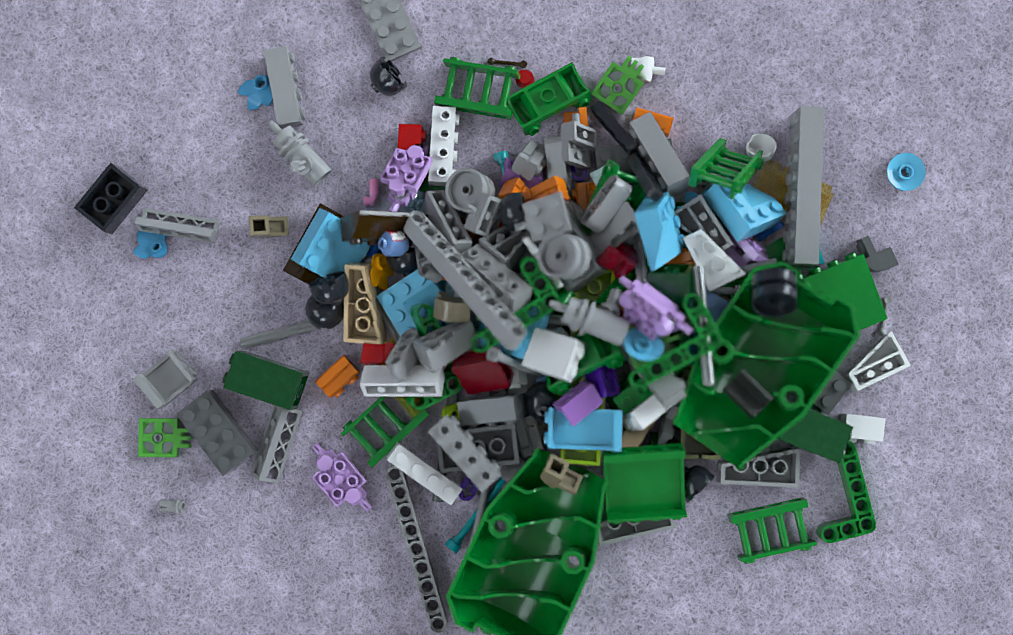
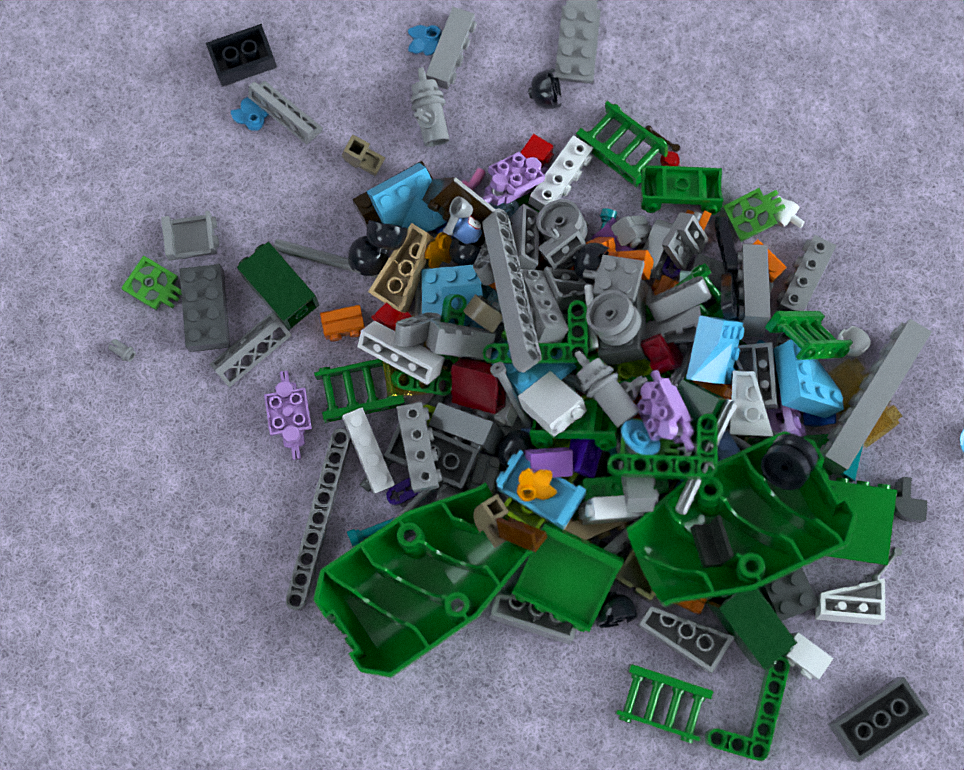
camera: 30 degrees right, 10 degrees down
(378, 233) = (458, 209): none -> light grey bar
(578, 430) = (535, 485): none -> light orange plate
(590, 474) = (520, 533): none -> reddish brown panel
(692, 114) = (807, 274): none -> light grey brick
(945, 444) = (878, 719): none -> dark grey brick

